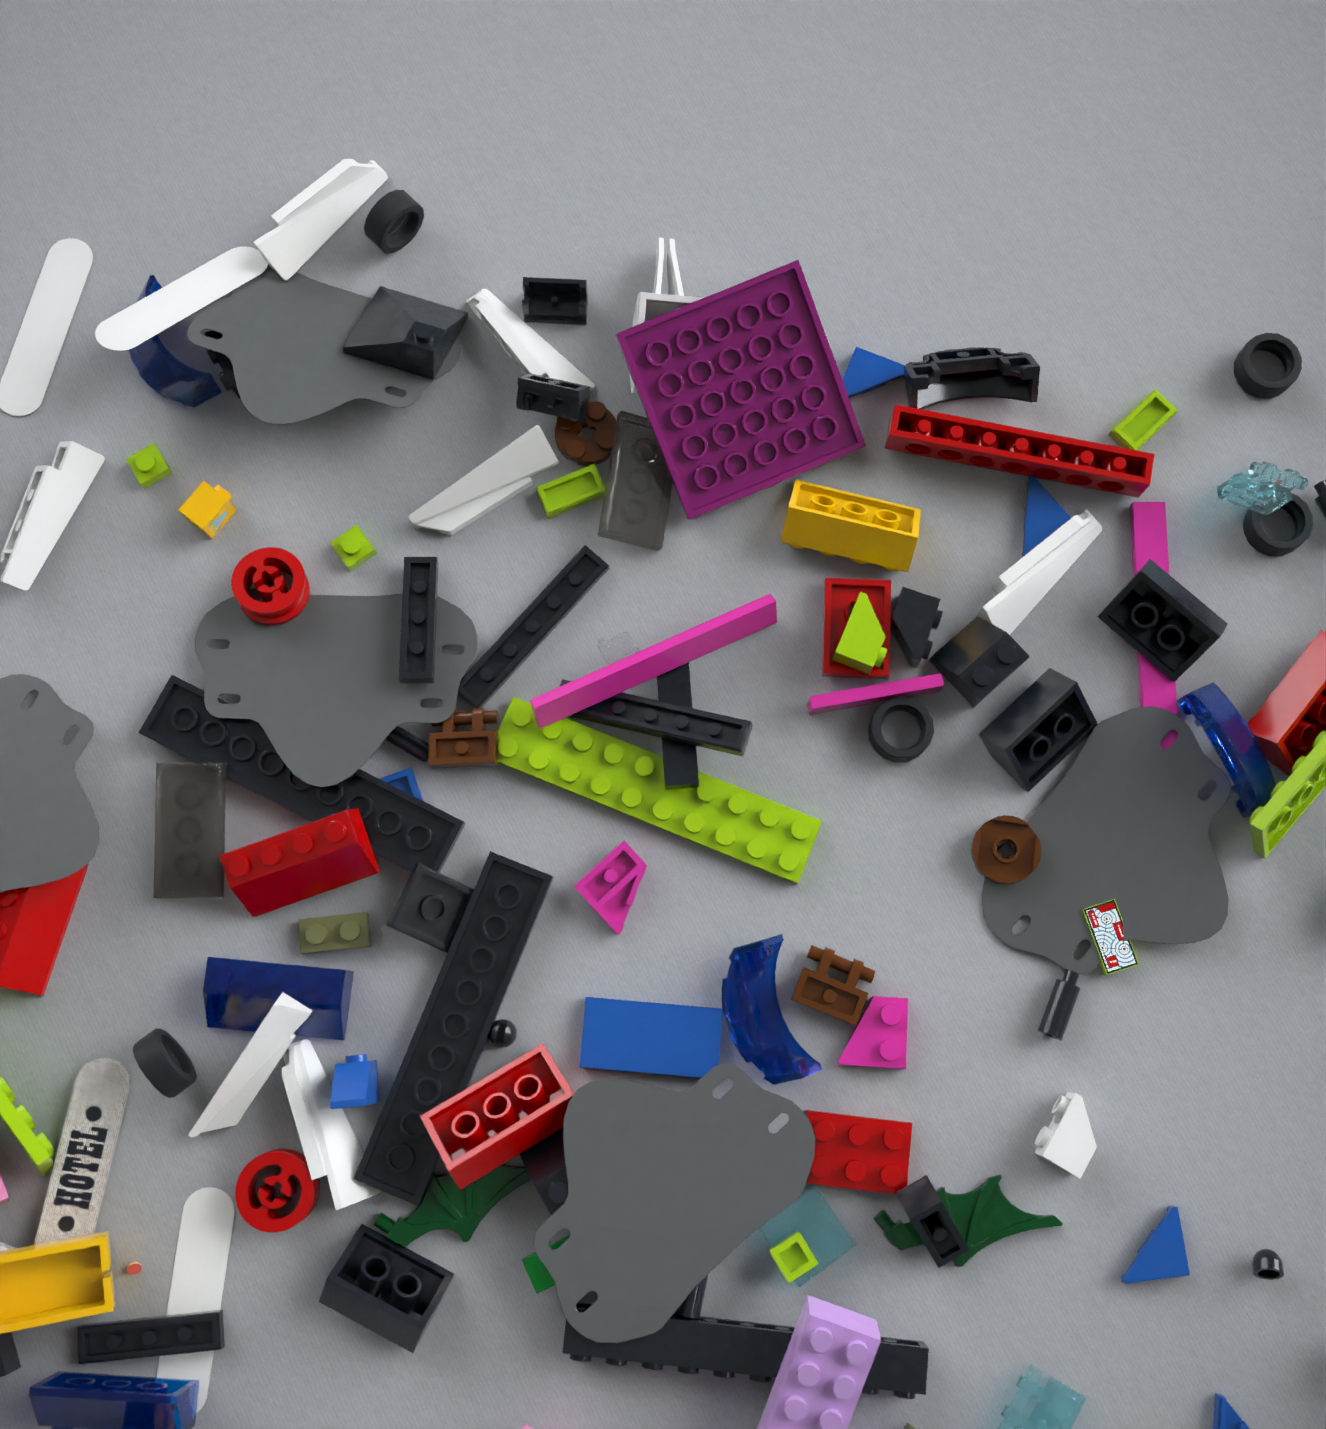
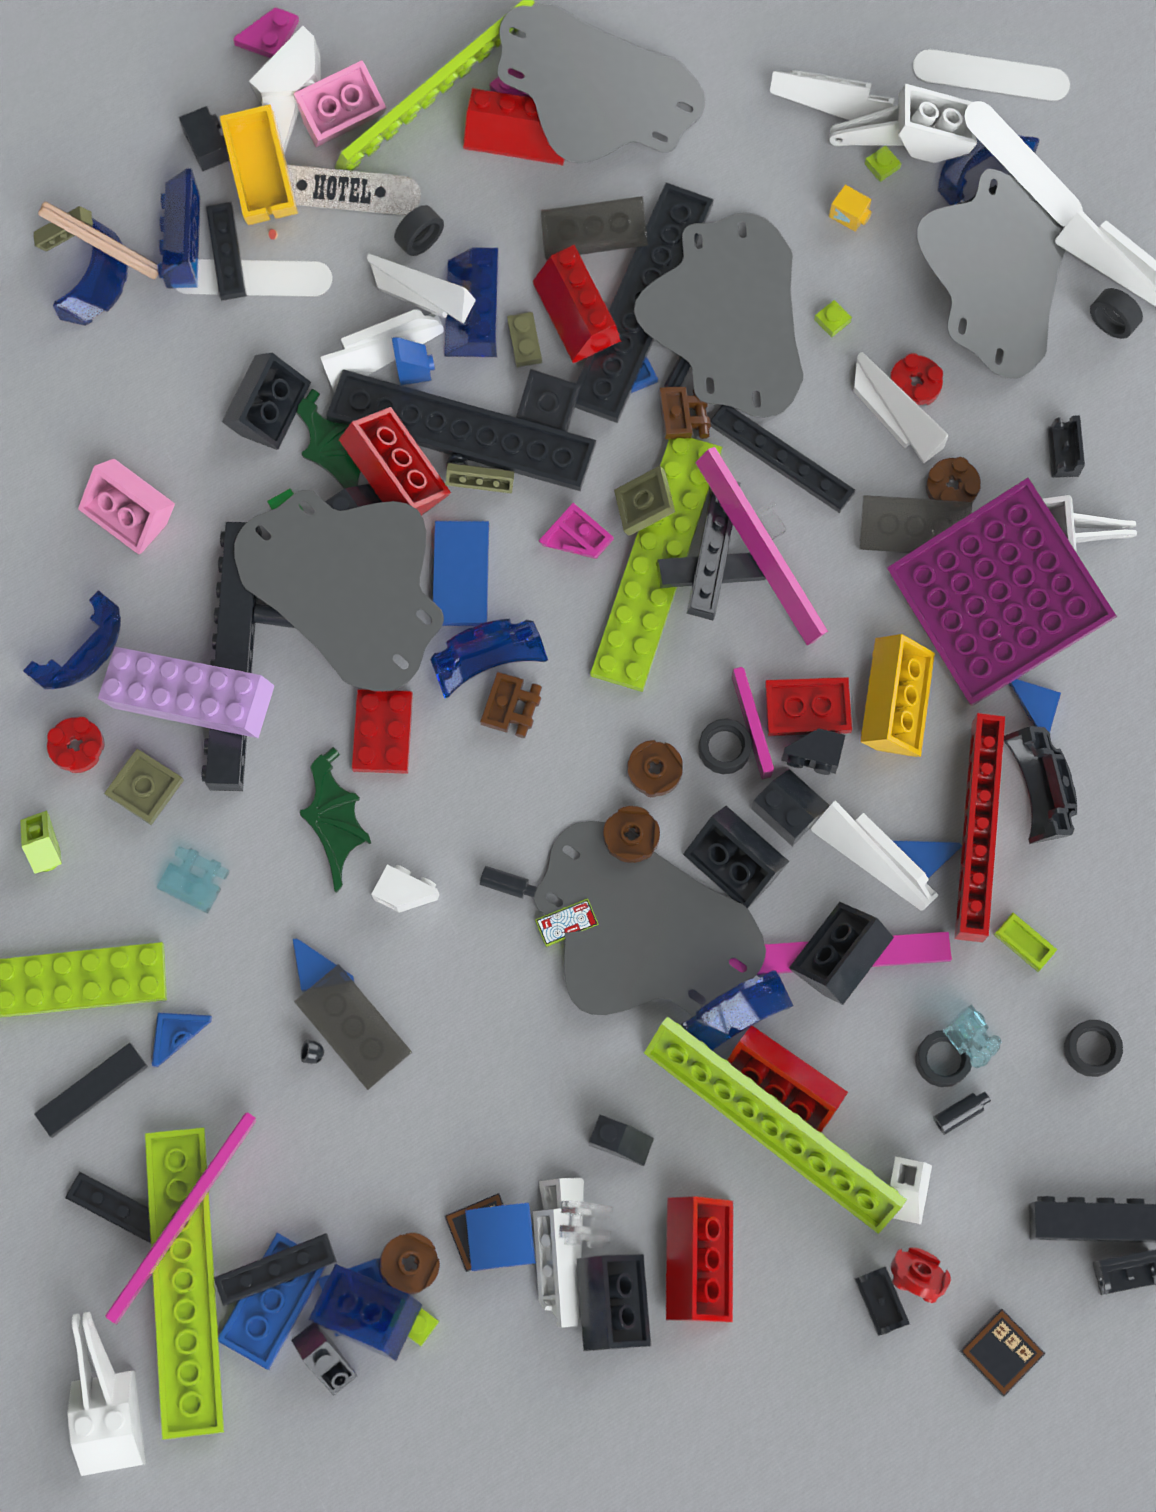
camera: 85 degrees right, 5 degrees down
(108, 402) = (924, 122): none -> white slope
(263, 570) = (799, 247): red wheel -> none
(263, 1215) = (321, 309): red wheel -> none
(406, 332) = (1020, 334): black slope -> none
(418, 620) = (777, 369): black plate -> none
(441, 443) = (924, 368): none -> red plate
(521, 342) = (1021, 432): white wedge -> none
(527, 1004) = (479, 478): none -> olive piece
(553, 397) = (977, 446): black hinge -> none
(571, 491) = (901, 475): lime tile -> none
(582, 796) = (644, 500): none -> olive plate
(793, 1256) = (301, 682): lime plate -> none
(817, 1226) = (318, 698): clear light blue tile -> none
(862, 638) = (797, 702): lime slope -> none
(879, 1035) = (474, 744): dark pink wing -> none
(928, 796) = (670, 772): none -> reddish brown plate
(932, 1221) = (332, 783): black slope -> none
(1237, 1210) = (353, 1027): none -> clear smoke tile

